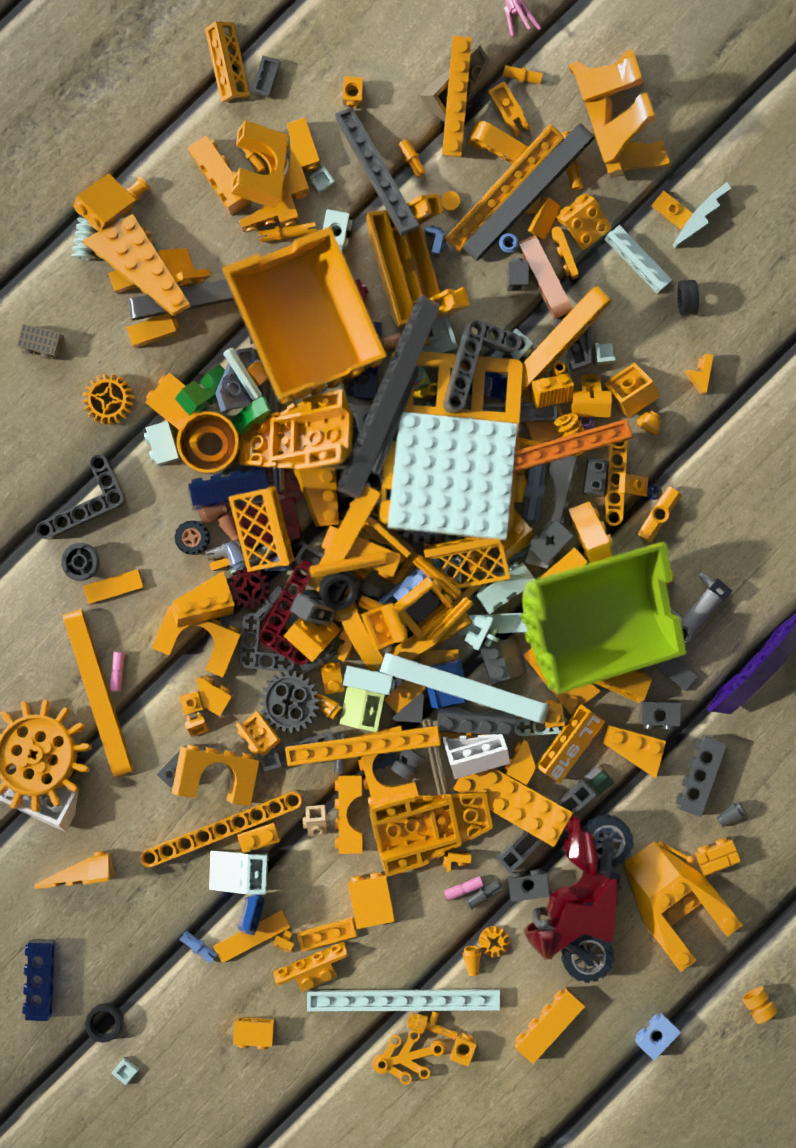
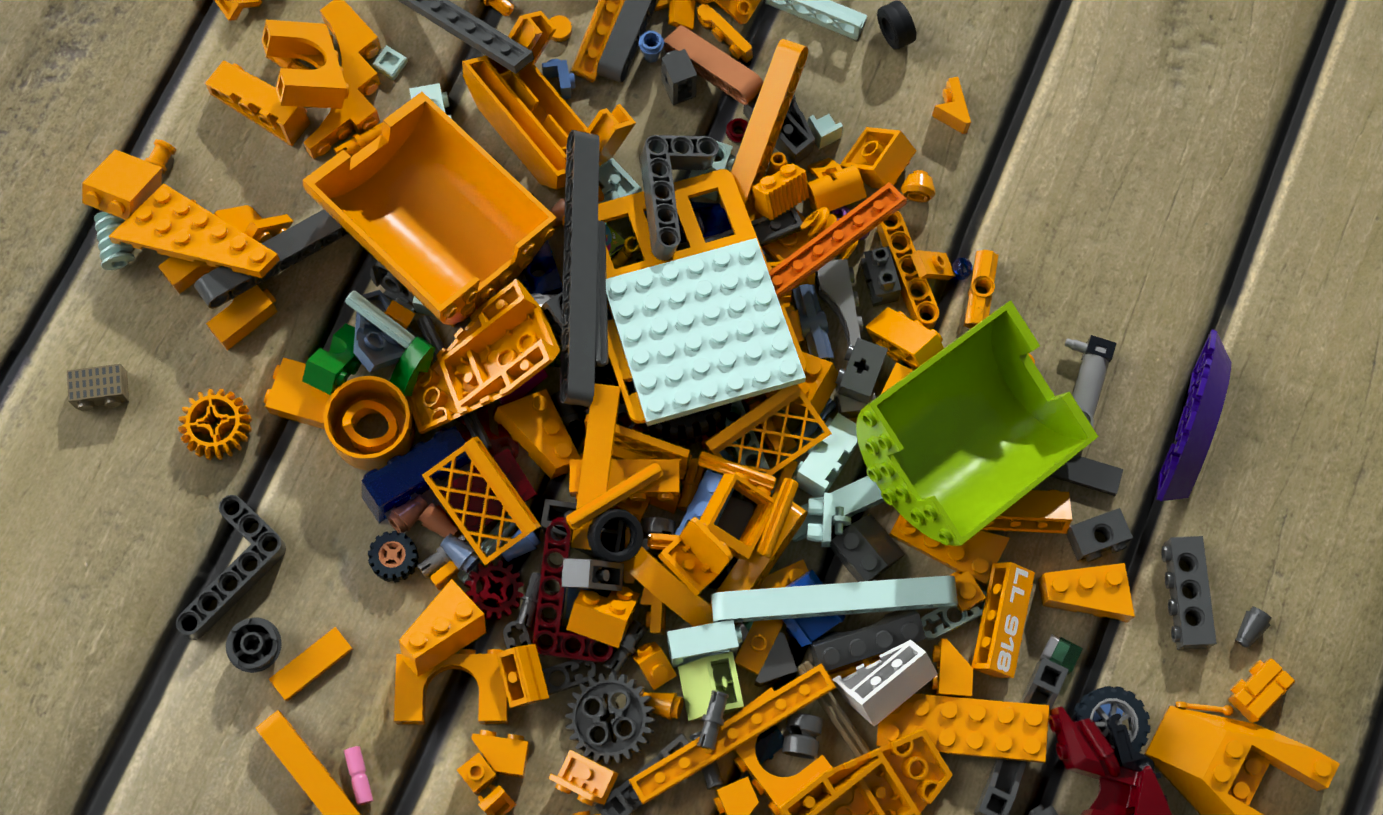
camera: 25 degrees left, 15 degrees down
(162, 443) = (308, 451): light aqua brick -> none
(244, 654) = (522, 675): none -> light orange brick
(353, 734) = (713, 720): none -> dark grey pin
(539, 325) = (734, 124): none -> dark red plate

